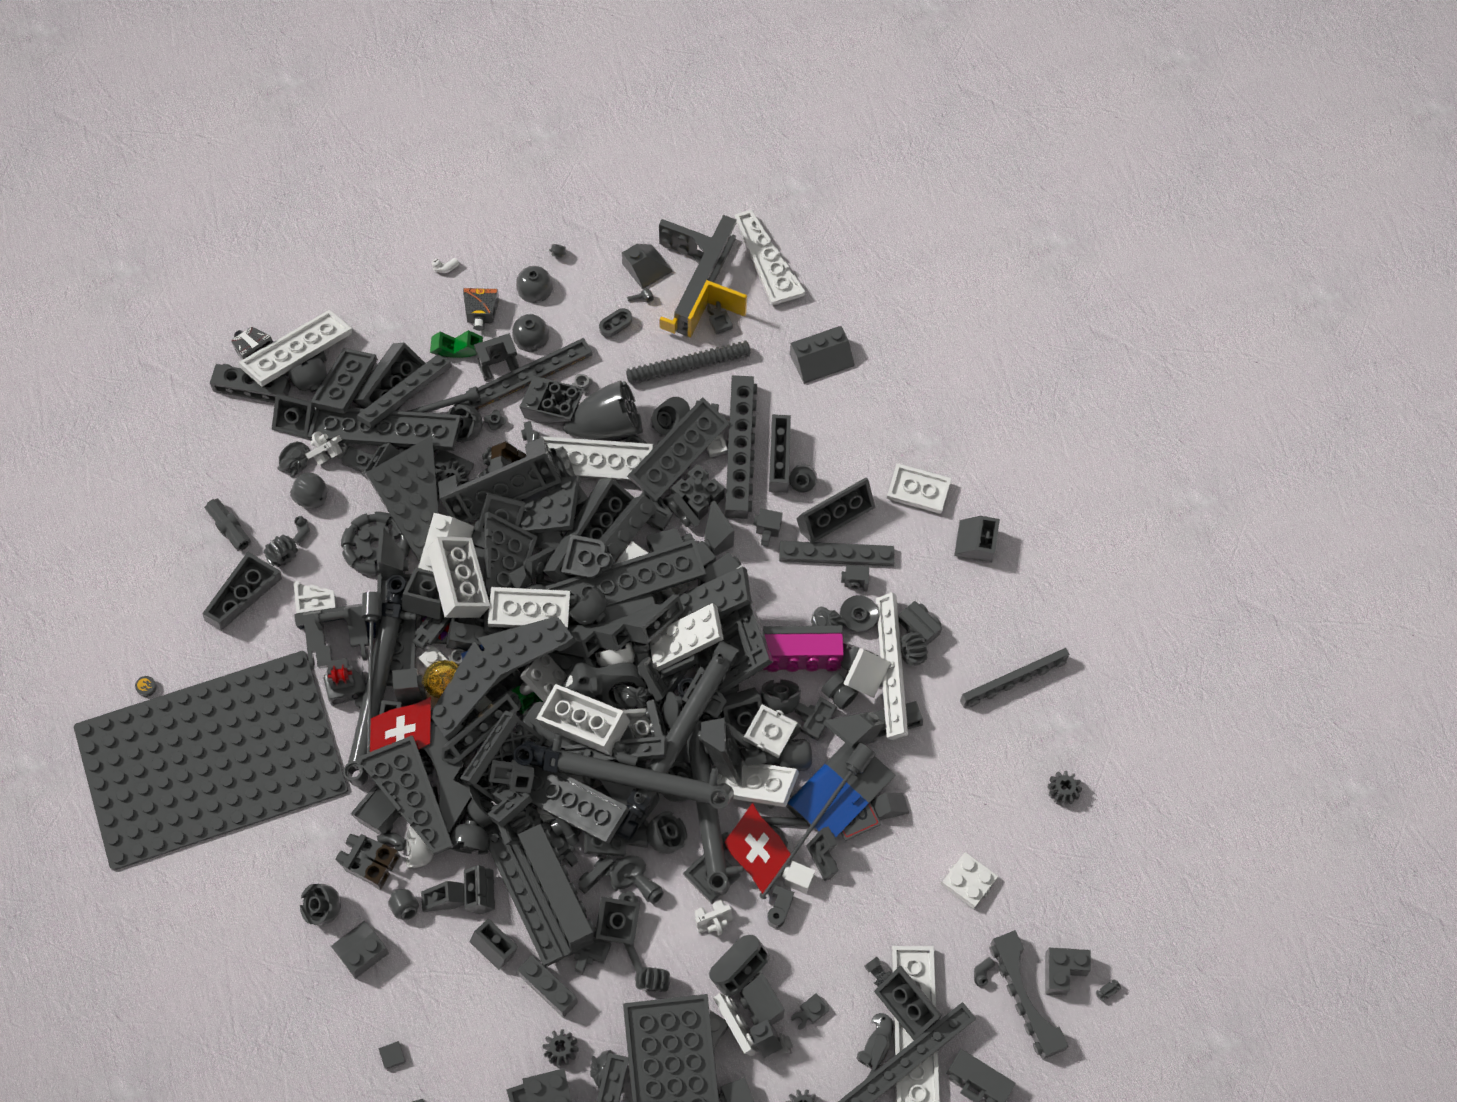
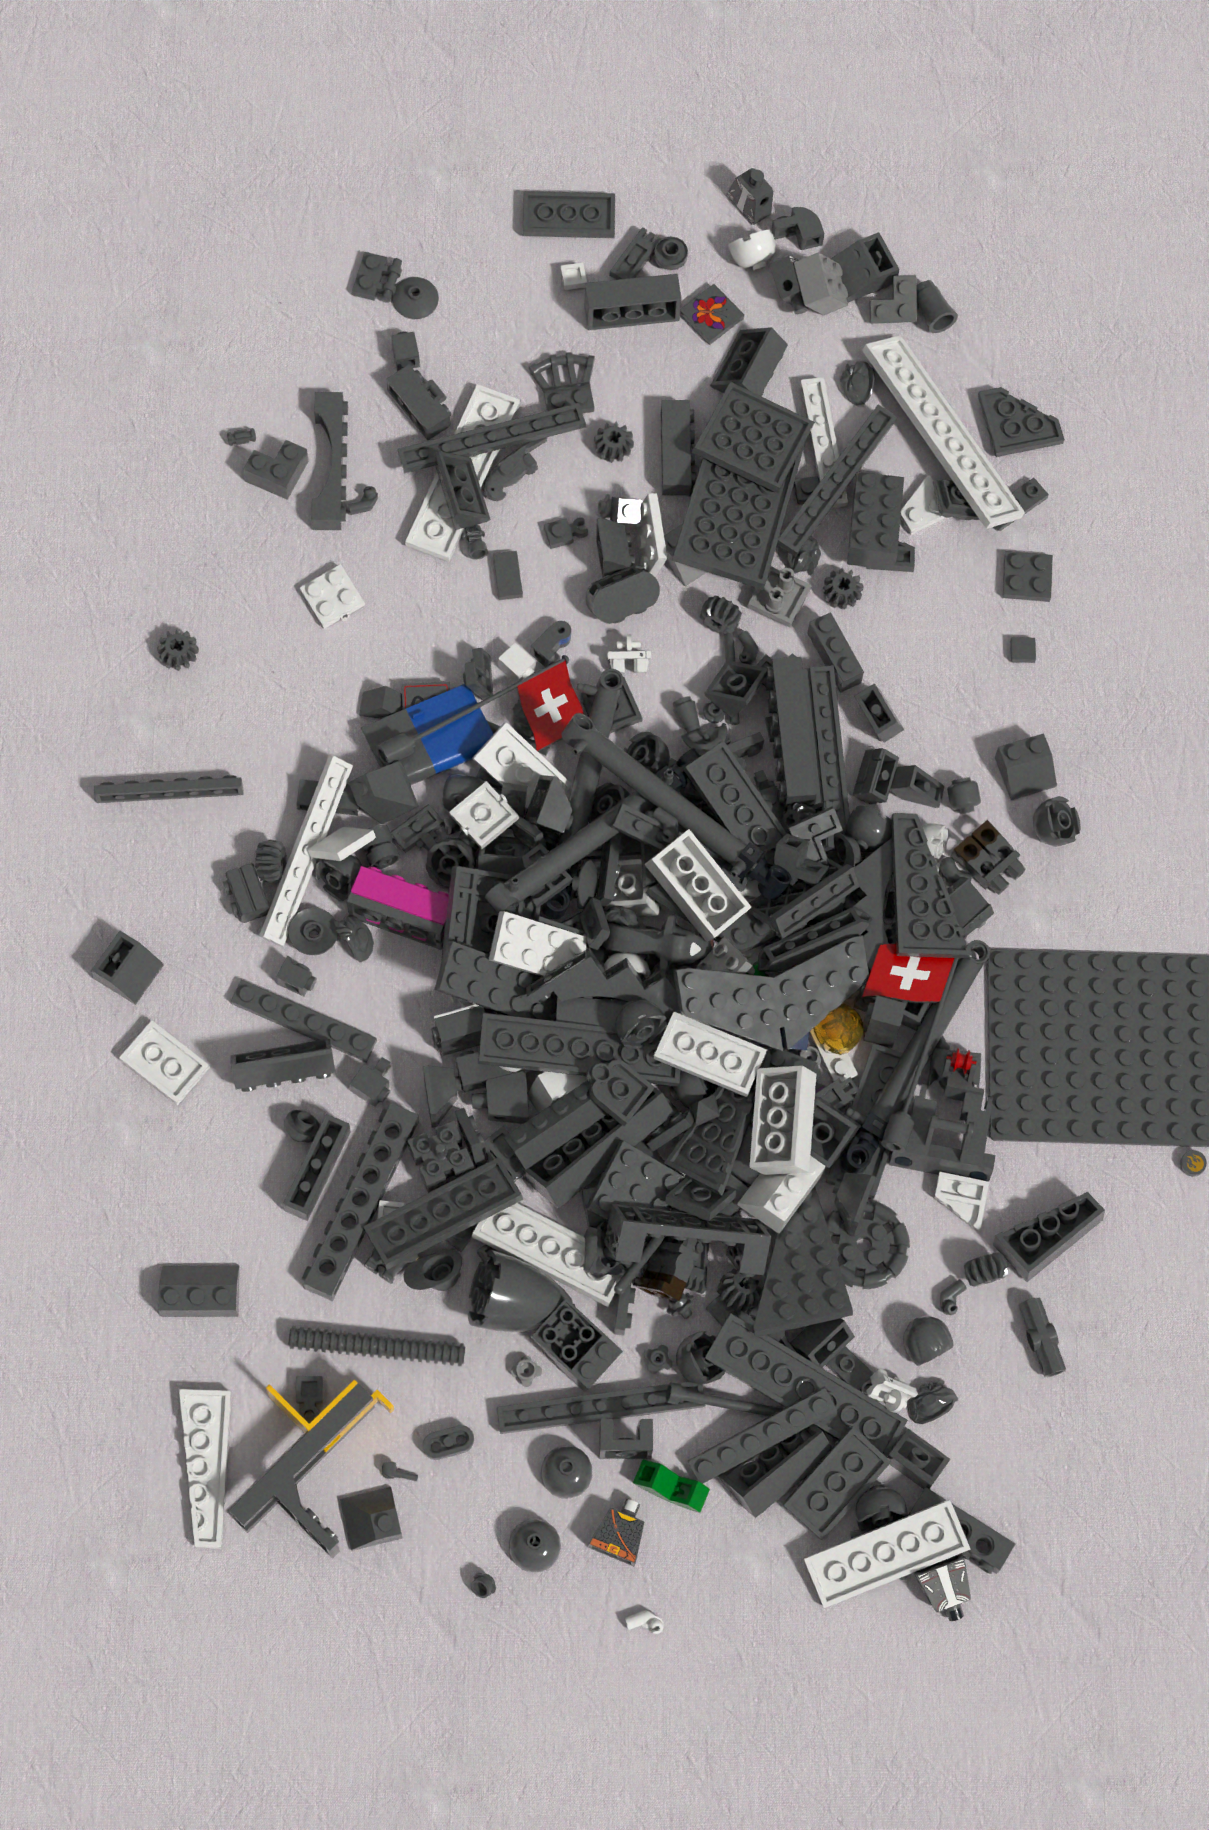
camera: 160 degrees left, 5 degrees up
(607, 1021) = (781, 596): none -> light grey plate
(618, 965) = (750, 648): none -> dark grey arm
(839, 954) = (508, 575): none -> dark grey tile

